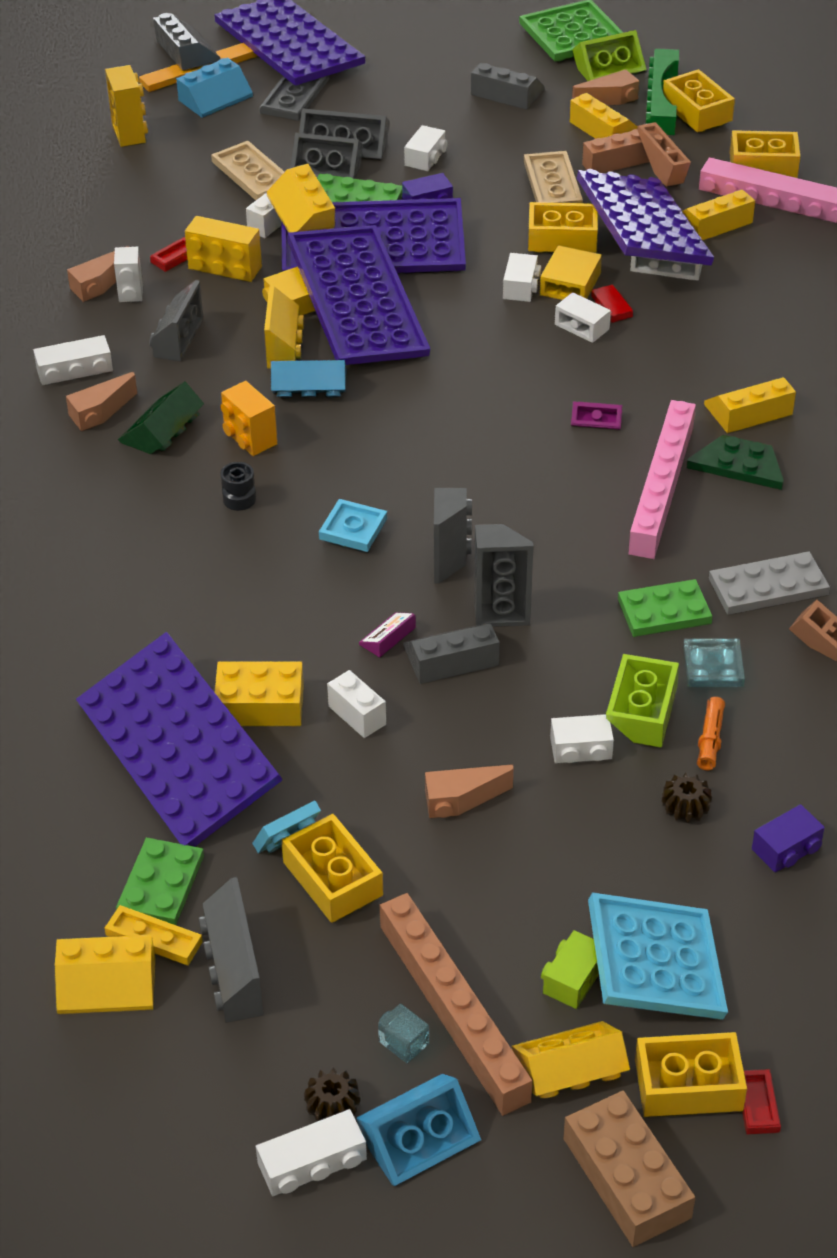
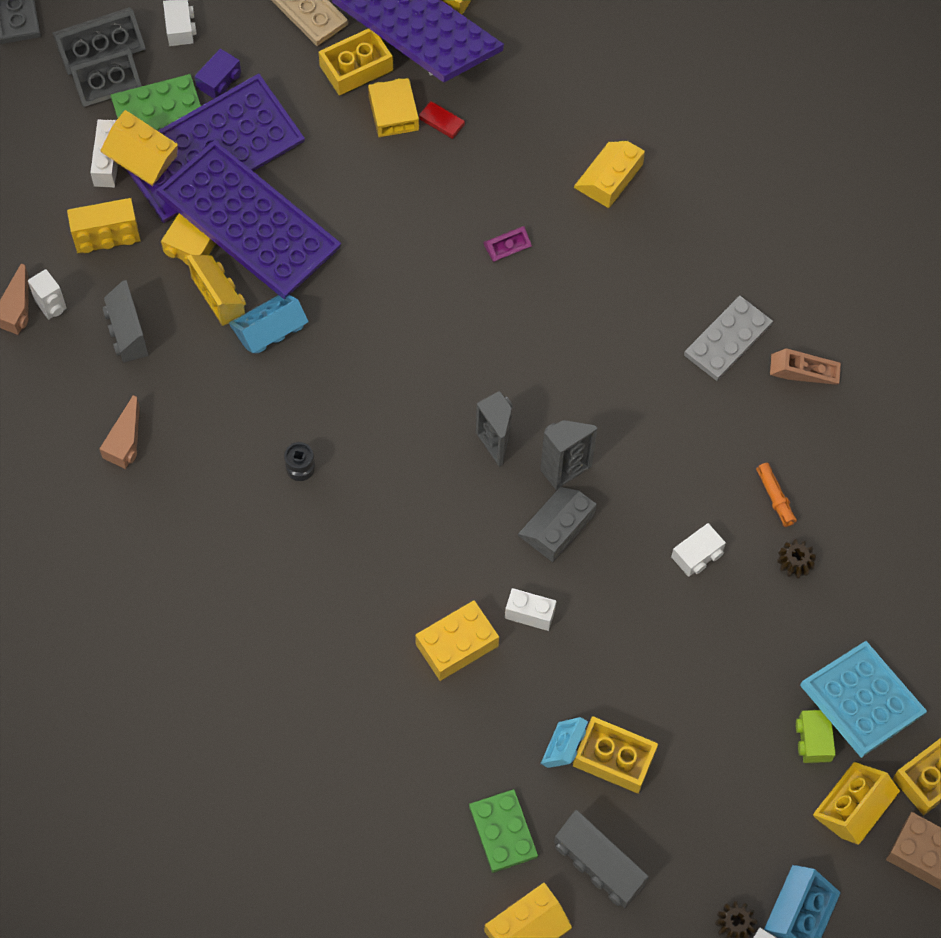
camera: 35 degrees left, 20 degrees up
(73, 360) = (68, 405): white brick -> none
(163, 420) = (187, 427): dark green slope -> none
(168, 939) = (532, 875): yellow plate -> none
(170, 255) = (55, 245): red tile -> none
(178, 741) = (433, 714): dark purple plate -> none
(248, 168) = (51, 119): tan plate -> none
(249, 418) = (261, 393): light orange brick -> none
(353, 525) = (408, 448): medium azure plate -> none
(389, 633) = (501, 532): magenta slope -> none
(403, 1033) = (745, 849): clear light blue brick -> none
(456, 1005) = (761, 807): nougat brick -> none
(464, 789) = (645, 644): nougat slope -> none
(521, 277) = (357, 130): white brick -> none
(582, 317) = (433, 149): white brick -> none
(643, 698) = (721, 494): lime slope -> none
(662, 480) = (599, 283): bright pink brick -> none
(664, 608) = (673, 400): bright green plate -> none
(713, 663) = (739, 432): clear light blue plate -> none
(739, 461) = (637, 232): dark green wing -> none
(788, 838) = (879, 554): dark purple brick -> none

